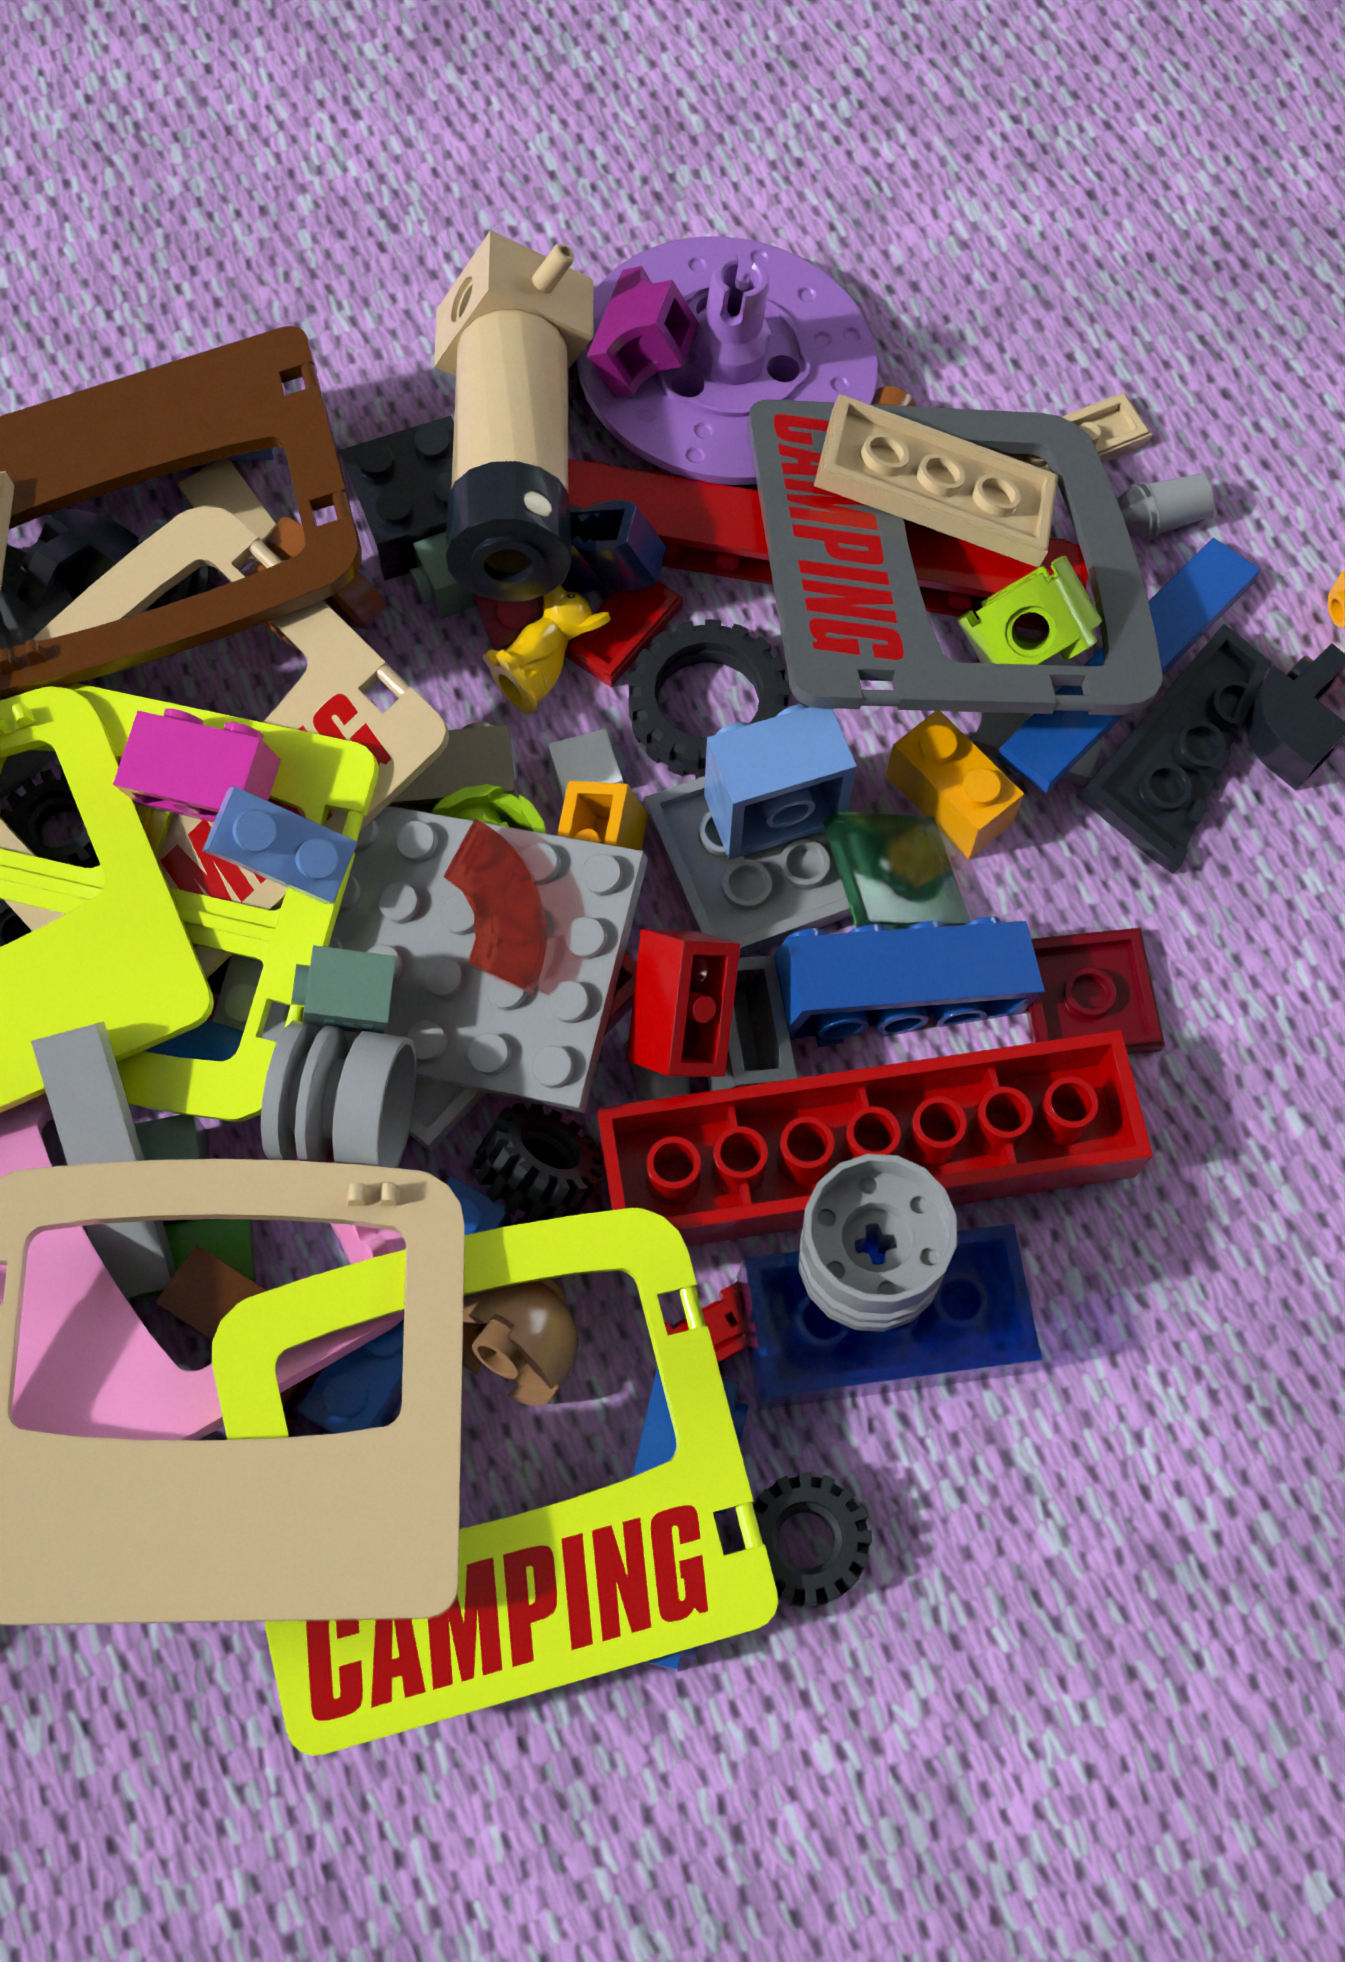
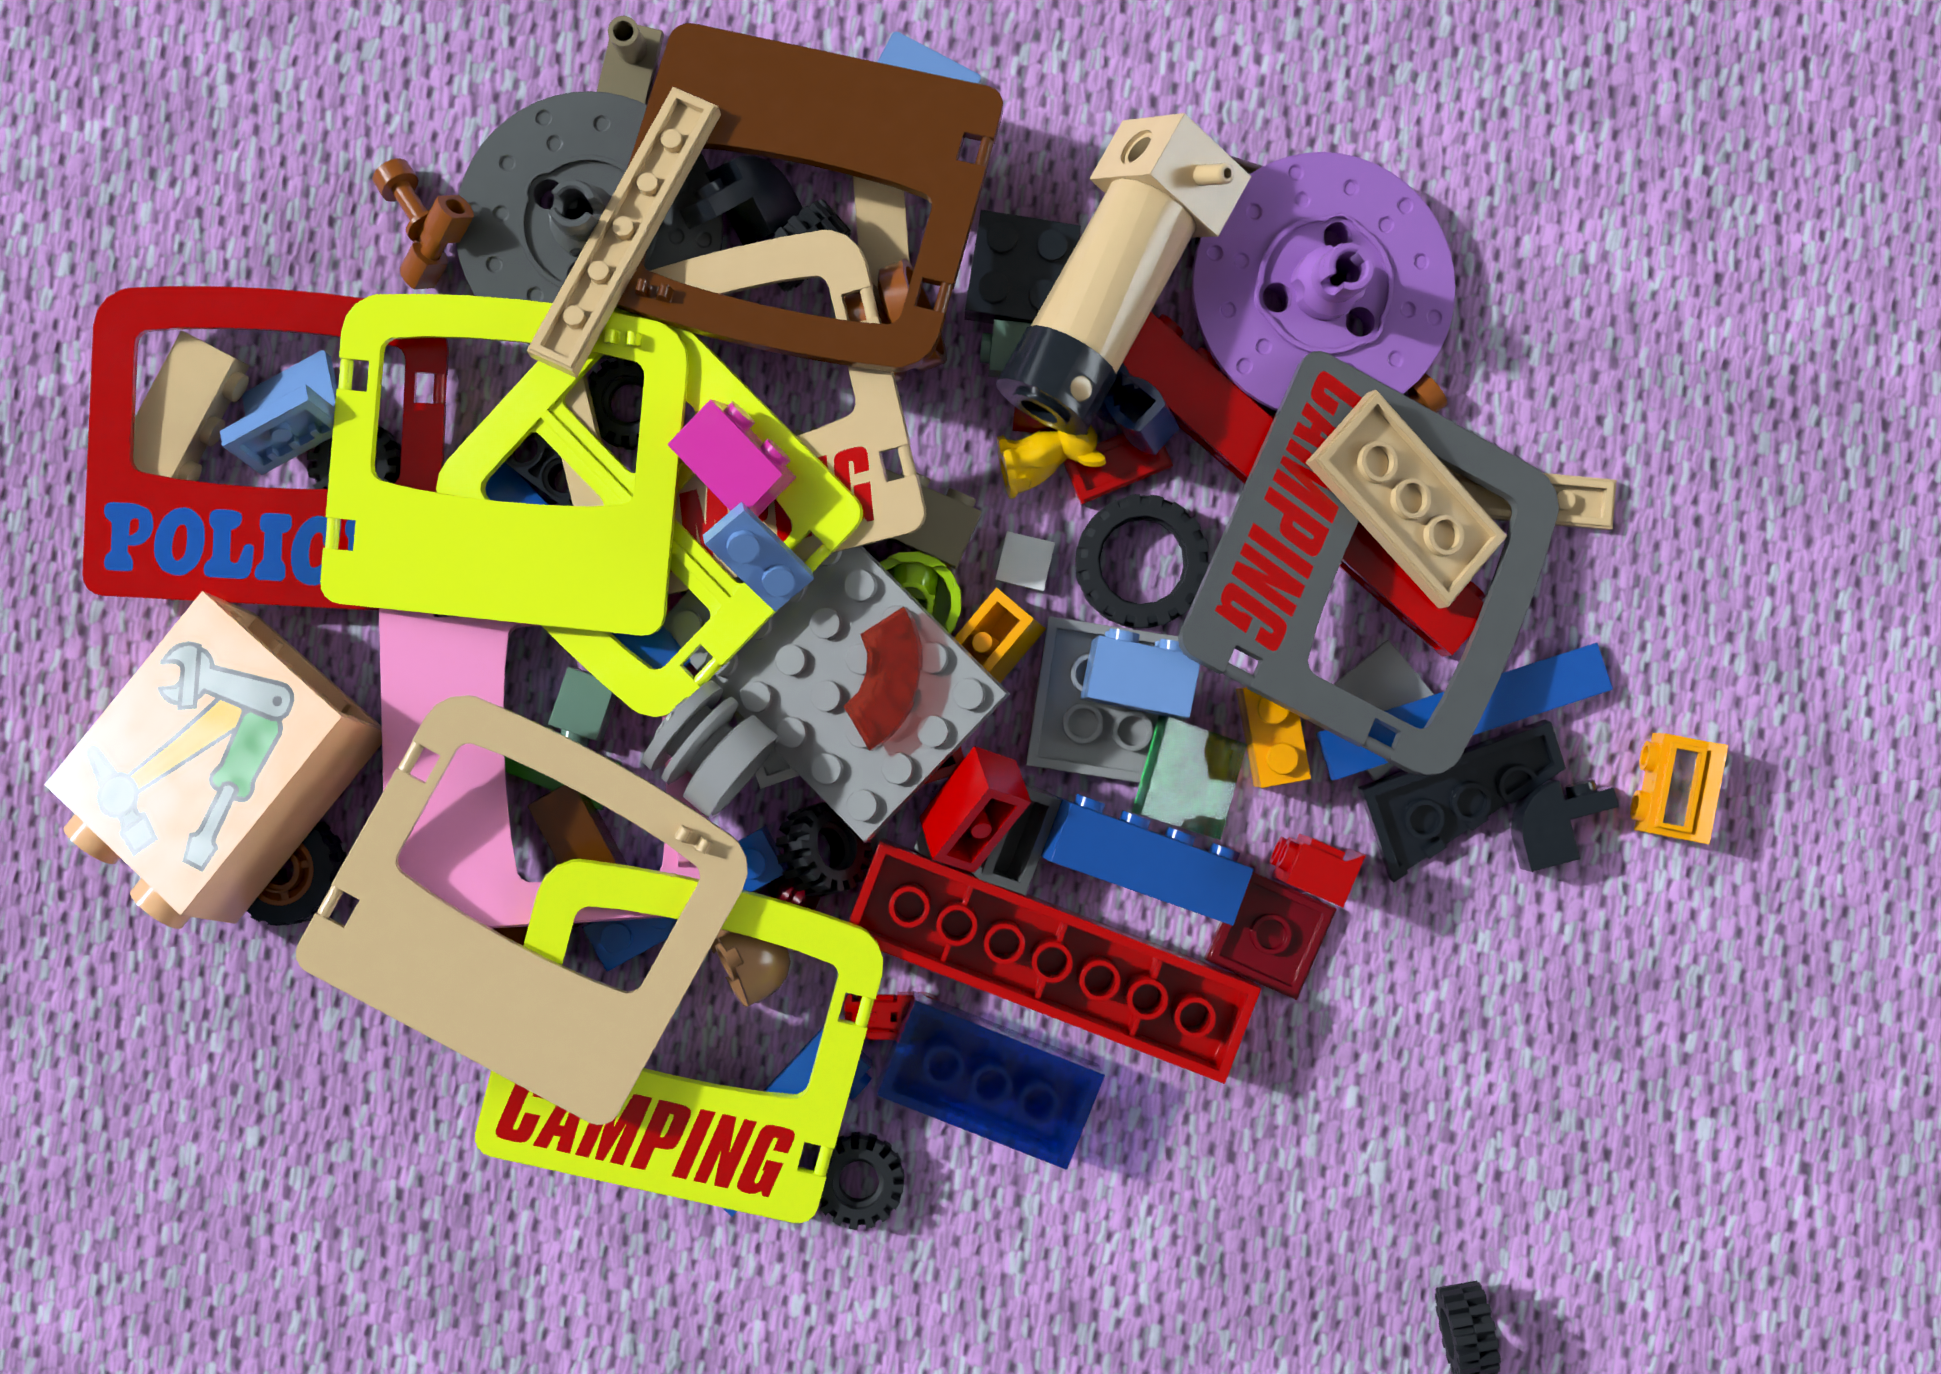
camera: 30 degrees right, 20 degrees up
(99, 1128) = (542, 675): light grey tile -> none
(345, 989) = (751, 678): sand green brick -> none
(641, 332) = (1260, 246): magenta brick -> none
(905, 1218) = (1010, 1081): light grey wheel -> none
(1055, 597) = (1397, 658): lime brick -> none
(1090, 881) = (1316, 867): none -> red window
(1166, 505) = (1577, 596): piece -> none

